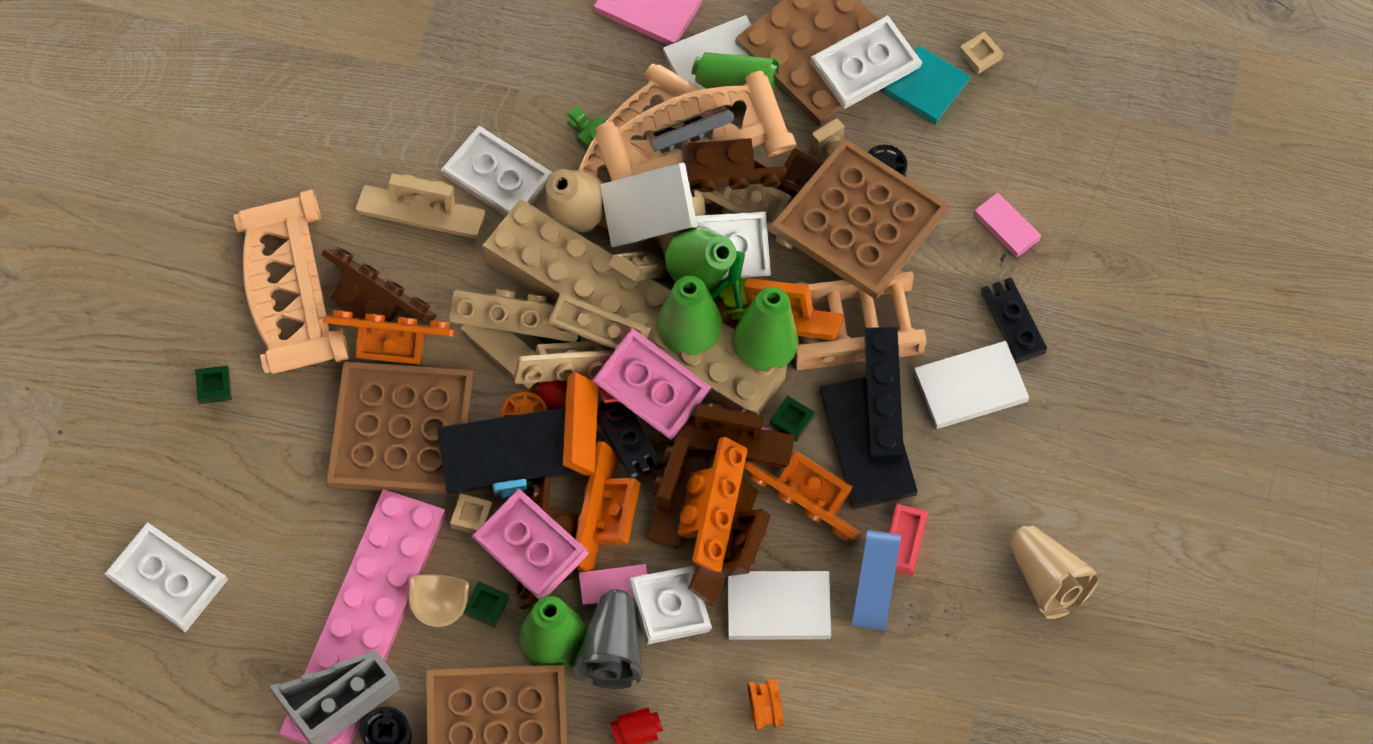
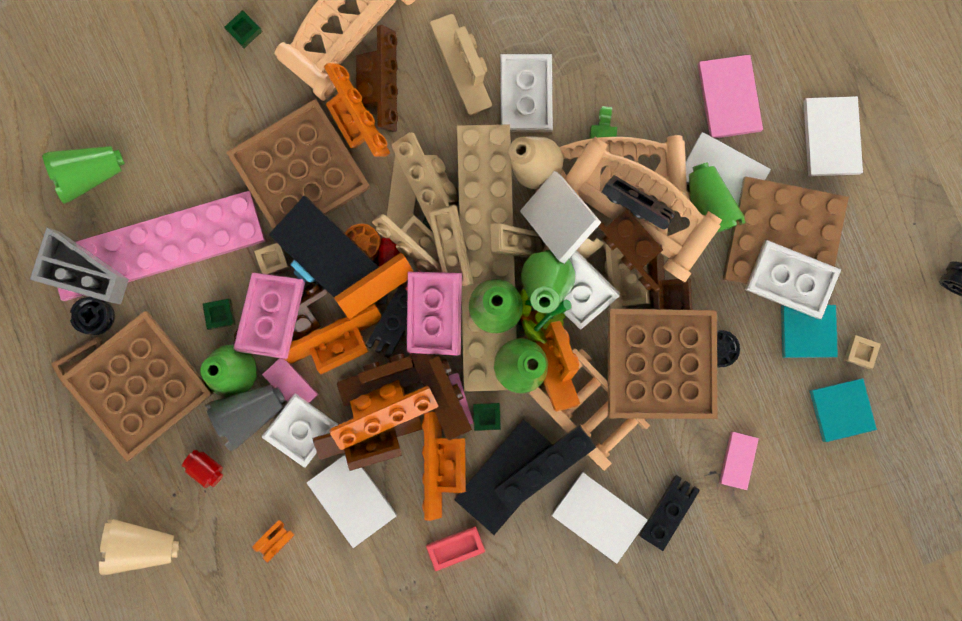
camera: 50 degrees right, 20 degrees up
(166, 577) = (100, 102): white tile -> none
(225, 637) = (81, 169): none -> bright green cone
(437, 598) = (199, 280): tan helmet -> none
(827, 138) = (714, 295): tan plate -> none
(876, 580) = (408, 554): medium blue beam -> none
(1025, 105) = (843, 410): none -> teal tile

